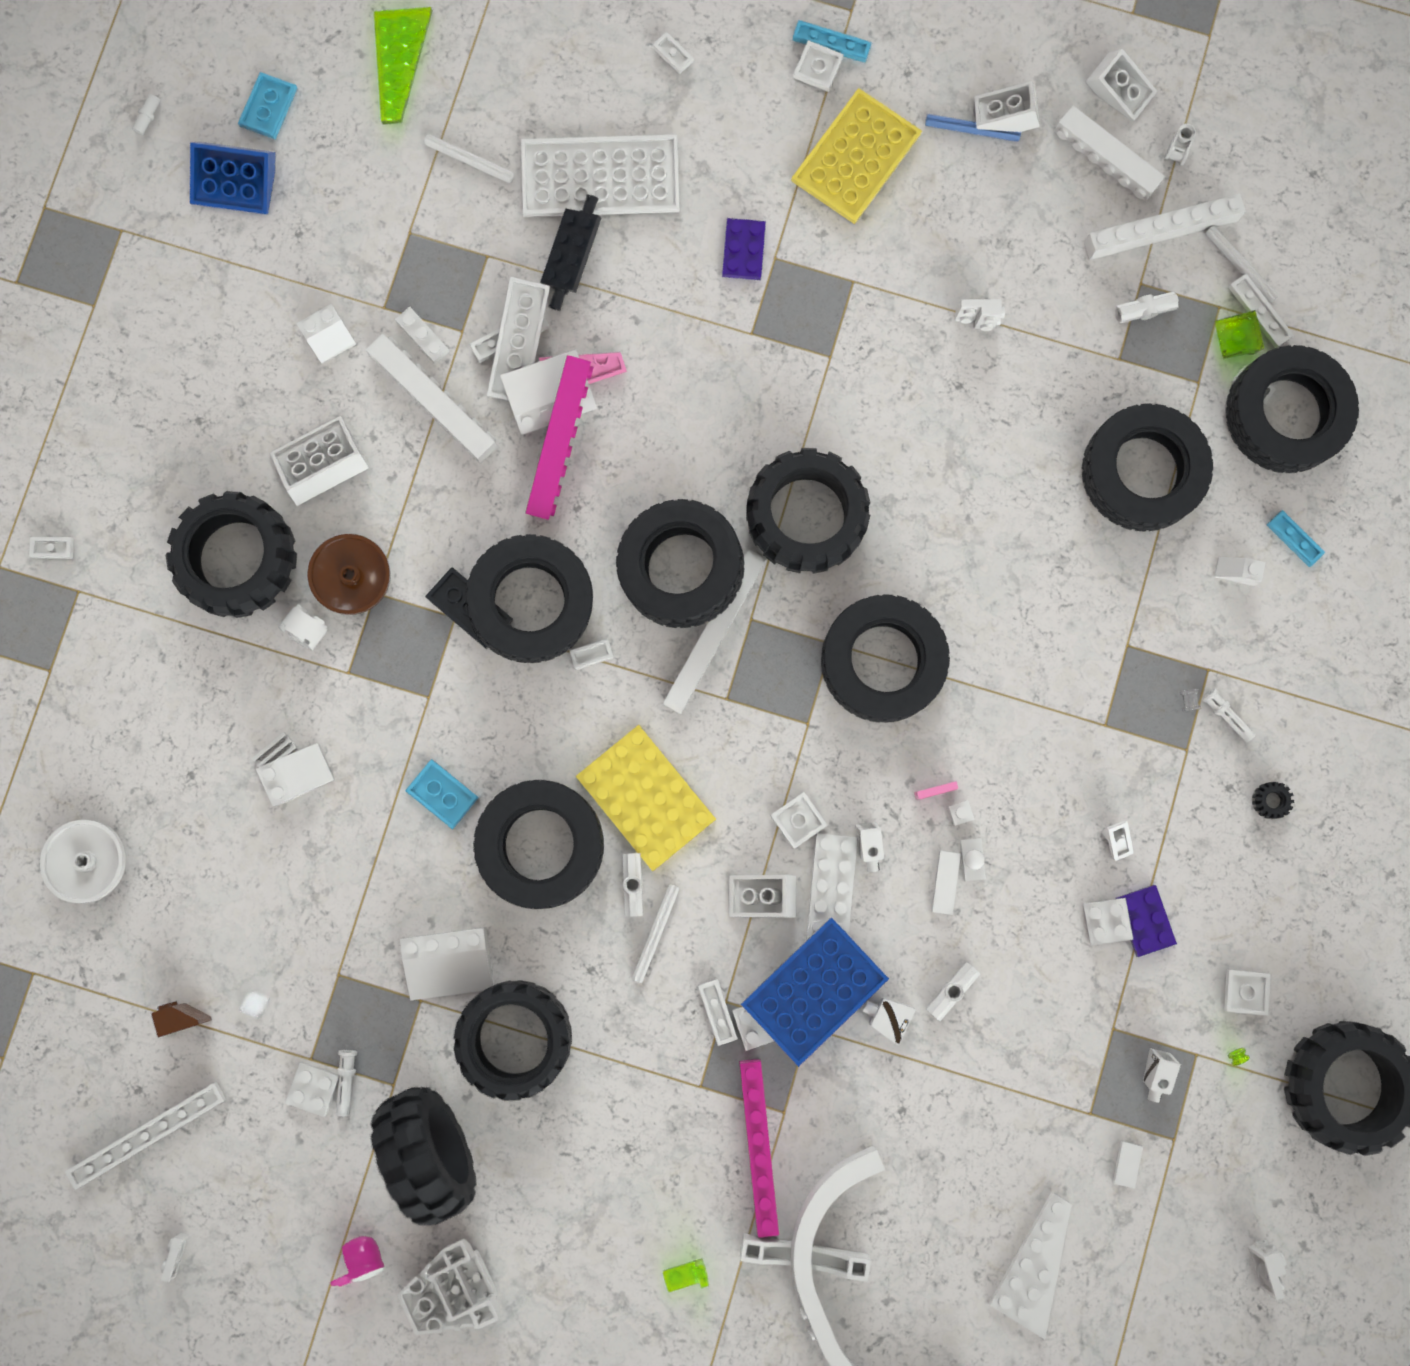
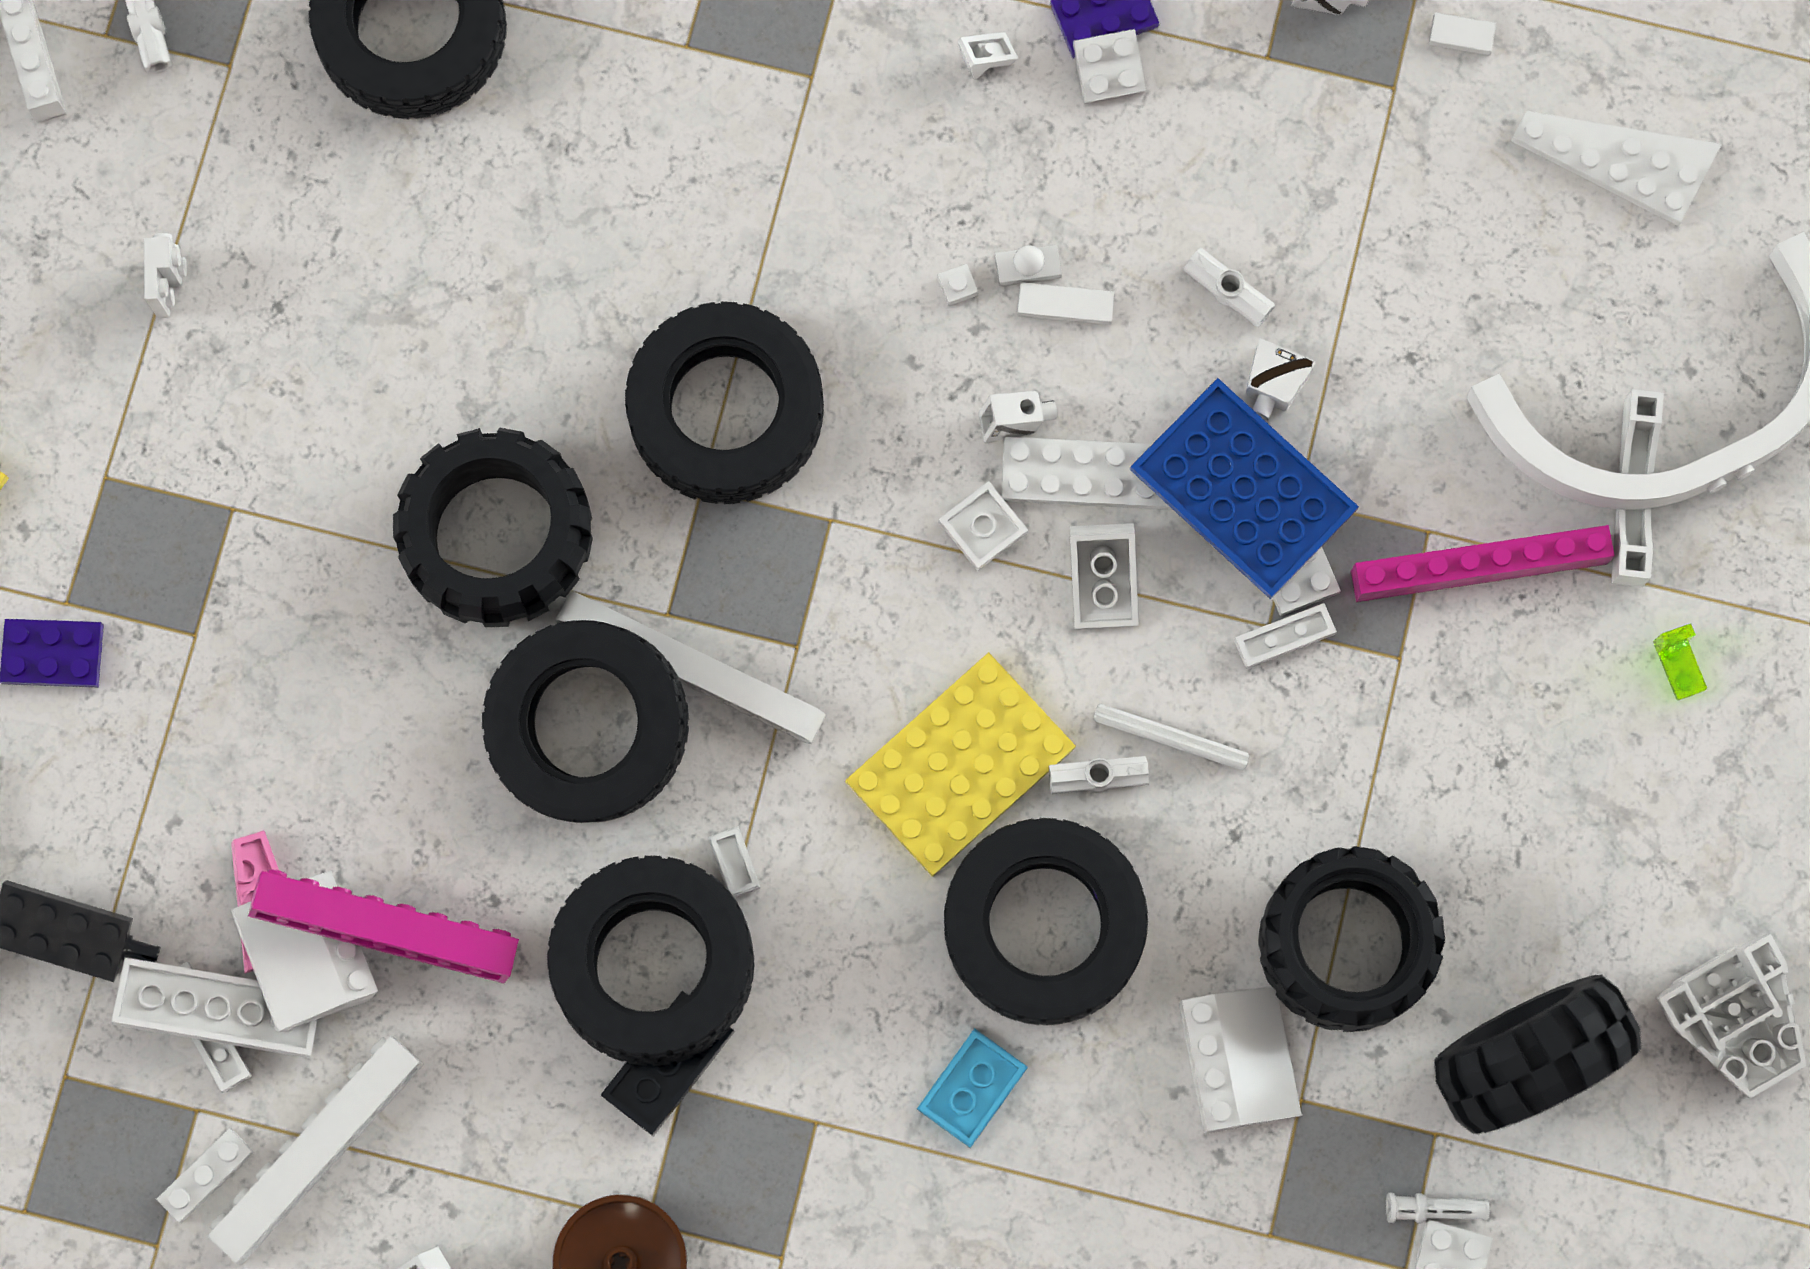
camera: 90 degrees left, 5 degrees down
(361, 1259) = (1703, 1156): dark pink piece -> none
(936, 790) = (926, 321): bright pink tile -> none

